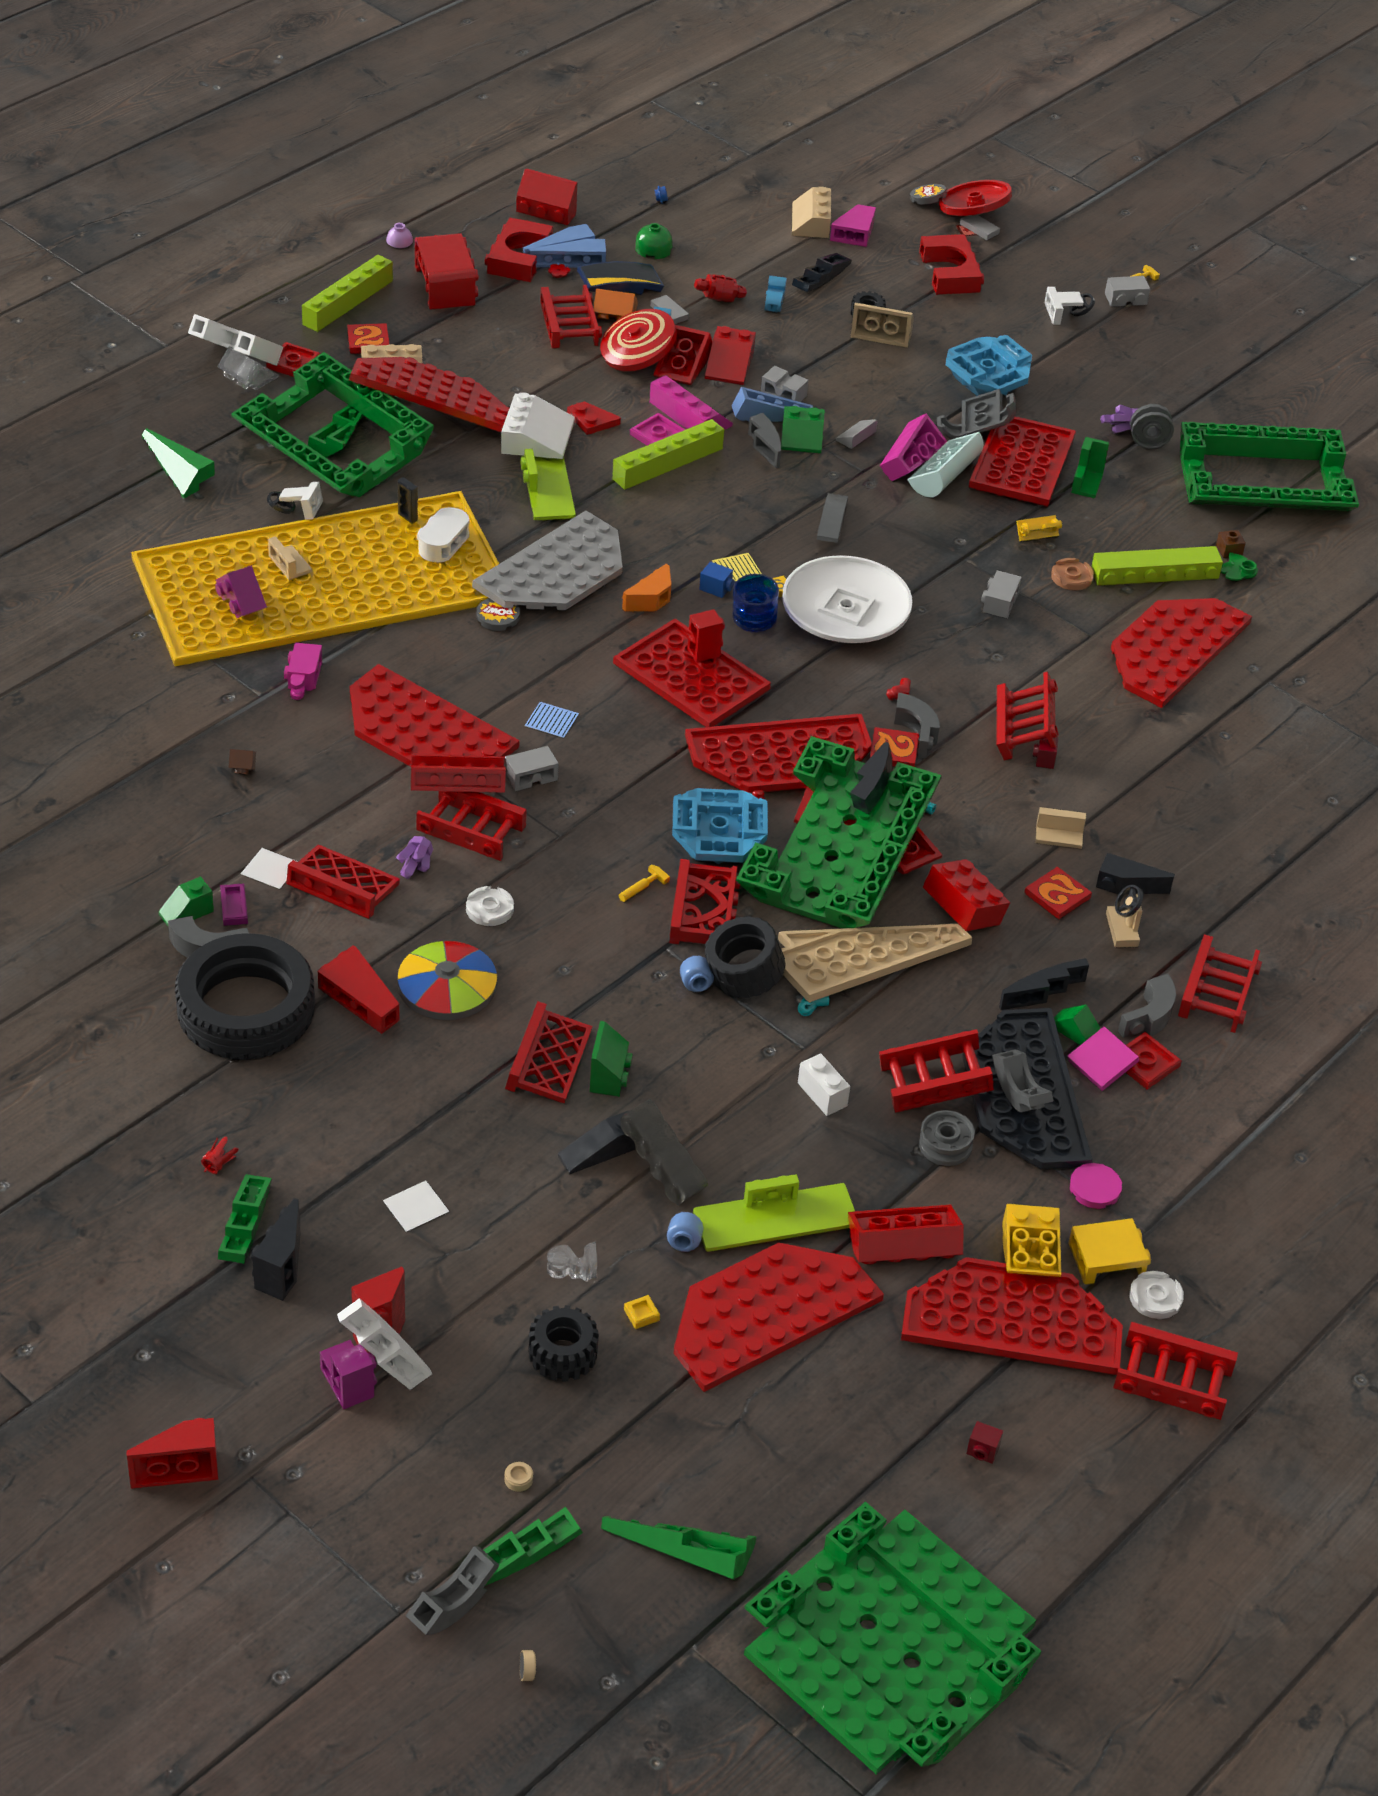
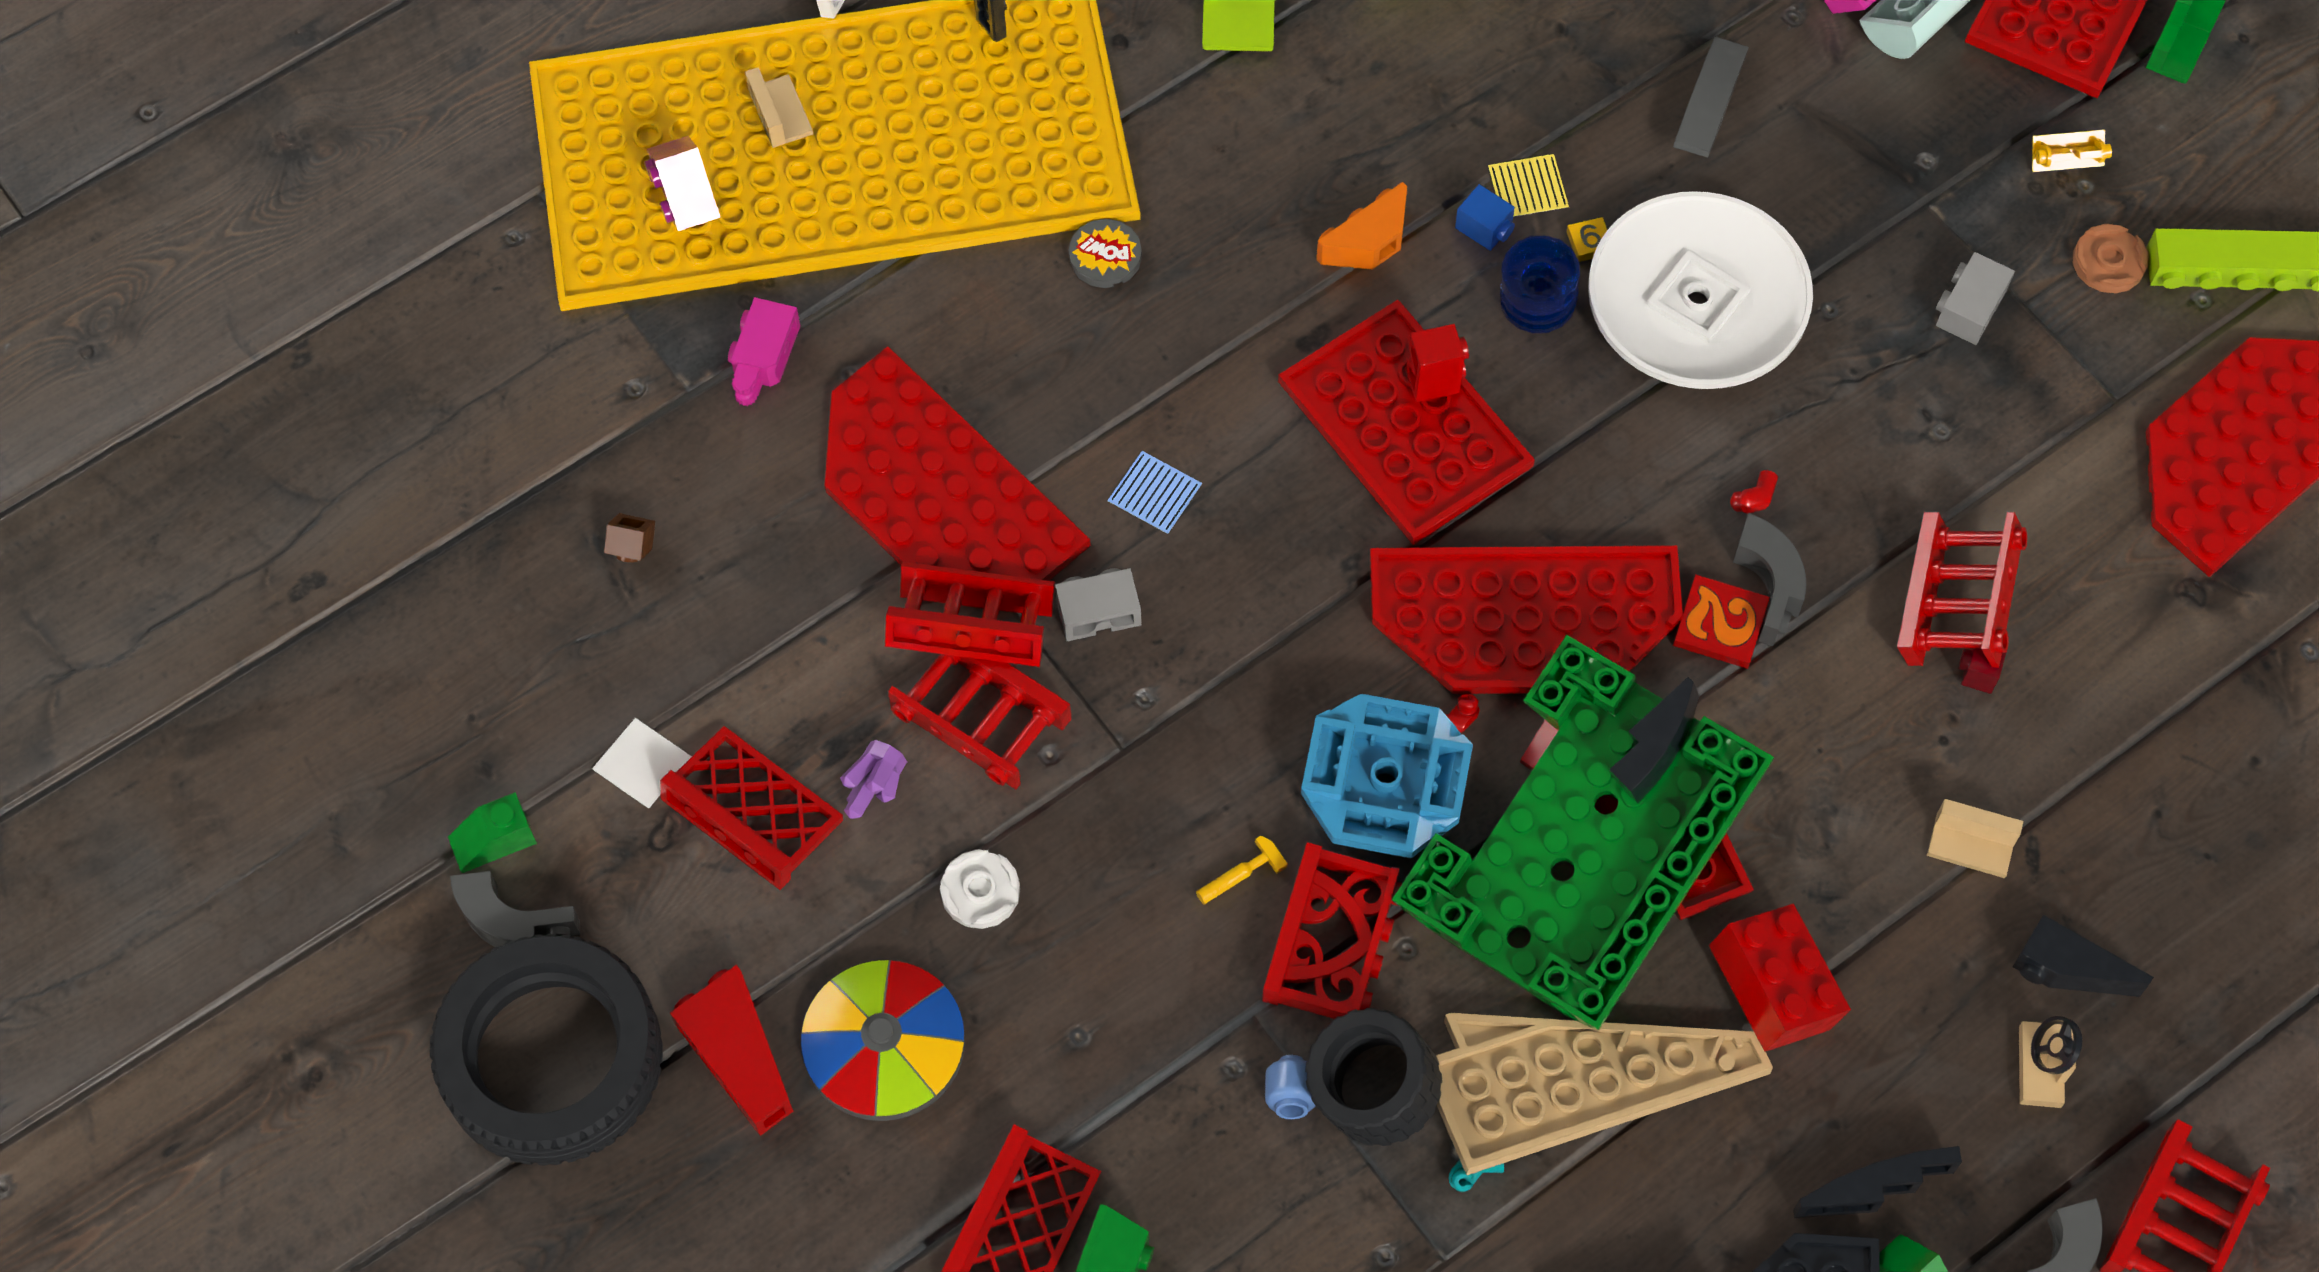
camera: 15 degrees right, 20 degrees up
(233, 904) = (569, 836): magenta tile -> none
(443, 534) = (1039, 80): white brick -> none
(557, 567) = (1221, 162): light grey plate -> none
(1058, 892) = (1943, 976): red tile -> none

